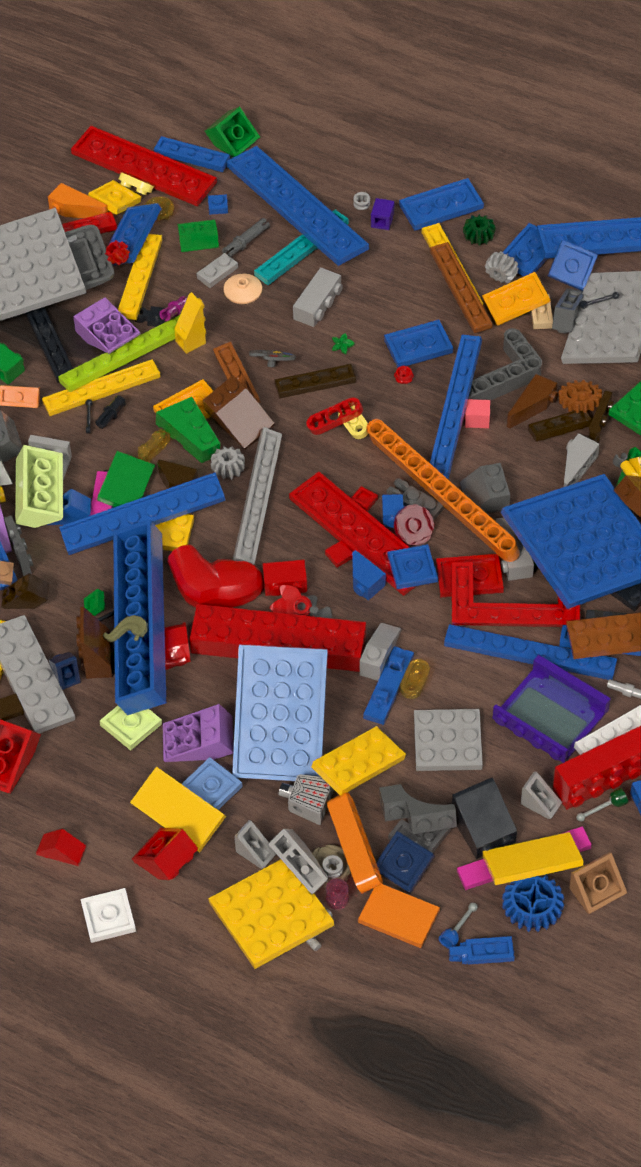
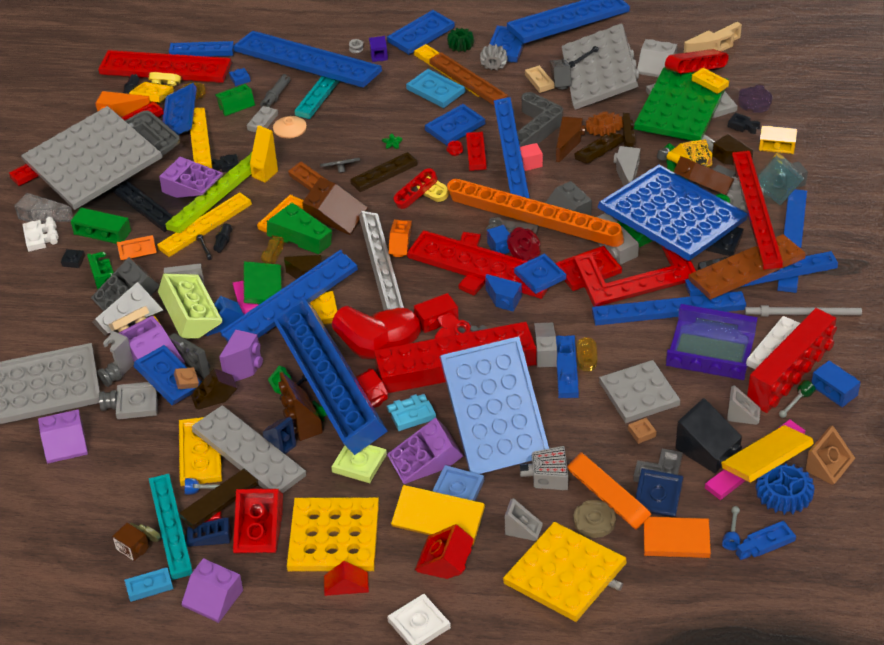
camera: 20 degrees left, 10 degrees down
(64, 565) = (241, 355): none -> medium lavender slope
(76, 762) = (326, 507): none -> yellow piece
(96, 181) = (131, 84): none -> black axle
(117, 252) = (176, 122): red gear -> none
(132, 623) = (333, 376): olive piece -> none
(174, 309) = (241, 151): magenta pin -> none
(207, 689) = (411, 411): none -> medium azure plate
(227, 462) = (343, 241): light grey gear -> none
(232, 132) = (228, 26): green slope -> none
(290, 471) = (399, 237): none -> orange slope
(299, 859) = (570, 519): light grey slope -> none
(317, 297) = (356, 115): light grey brick -> none
(337, 862) = (598, 510): light grey bush -> none
(337, 899) = (615, 536): clear pink wheel -> none
(358, 760) = (576, 427): yellow plate -> none
(420, 287) = (435, 88): none -> dark azure plate
(421, 815) = (654, 450): dark grey arch -> none
(424, 386) = (476, 151): none -> red plate
(425, 786) = (642, 430): none -> medium nougat plate
(516, 298) = (516, 74): light orange tile -> none
(572, 265) = (547, 42): tile -> none

